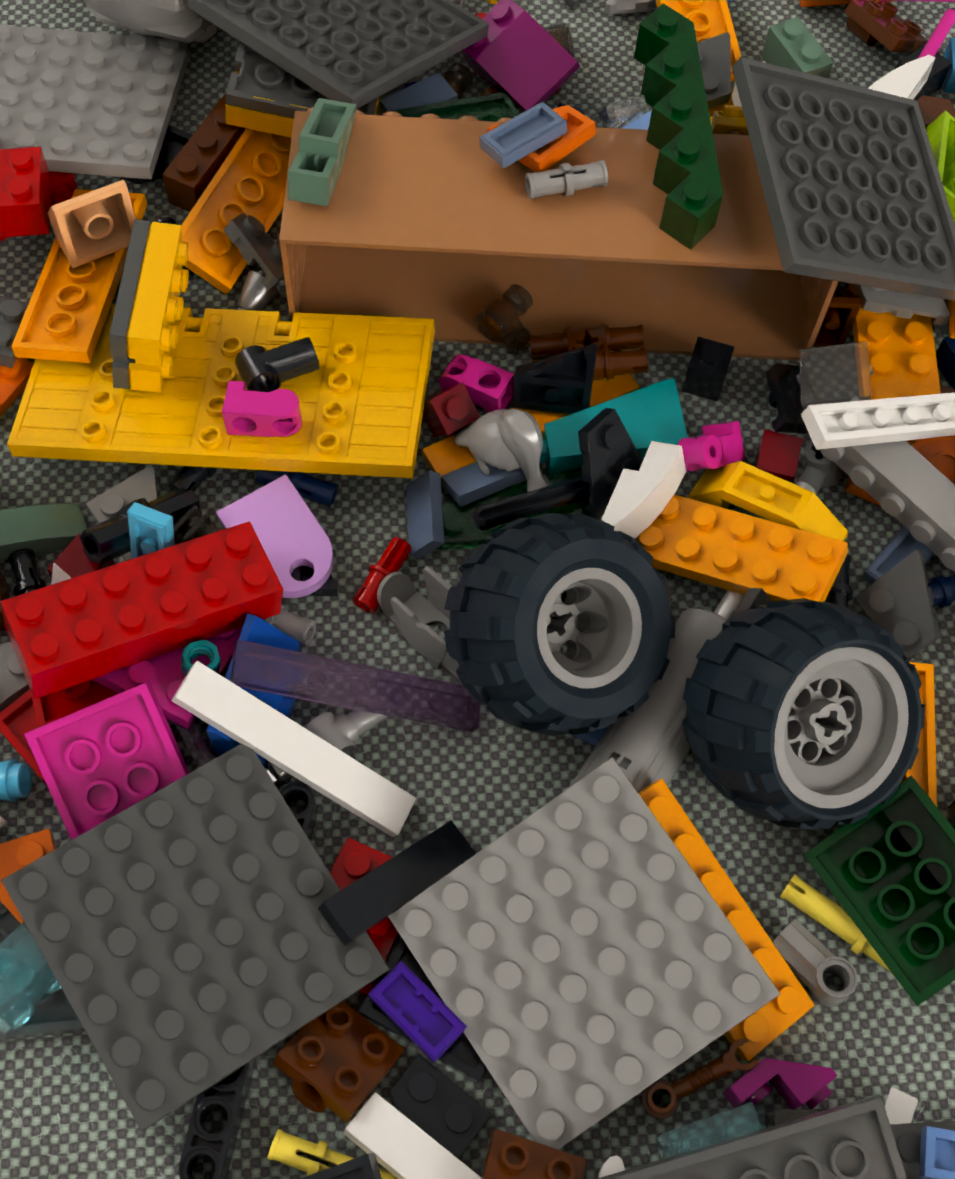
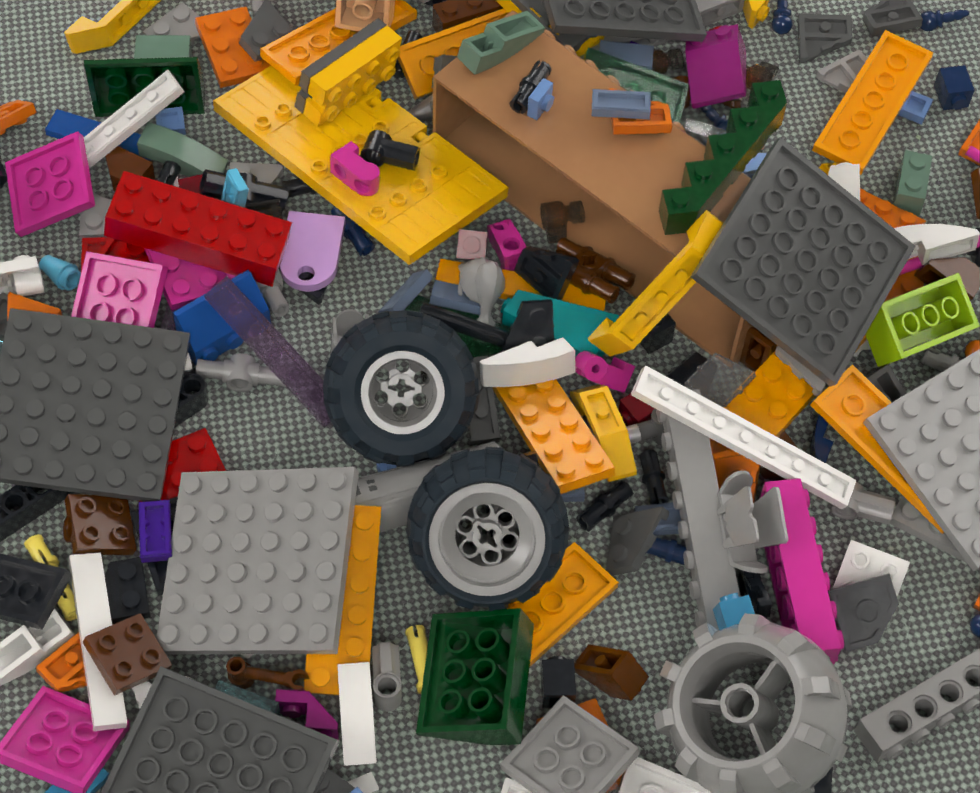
camera: 40 degrees right, 5 degrees down
(199, 648) = (206, 270): teal axle -> none
(294, 749) = (212, 358): white tile -> none
(389, 562) = (363, 305): red axle -> none
(395, 883) = (184, 456): black tile -> none
(402, 180) = (528, 85): none -> black pin
(431, 185) = (540, 99): none -> medium blue plate
(566, 179) = (625, 146): light grey pin -> none
(716, 69) = (834, 146): dark grey wing -> none
(741, 316) = (660, 295): none -> yellow slope
(834, 1037) = (356, 713): none -> white slope
(858, 529) = (653, 477): none -> black axle

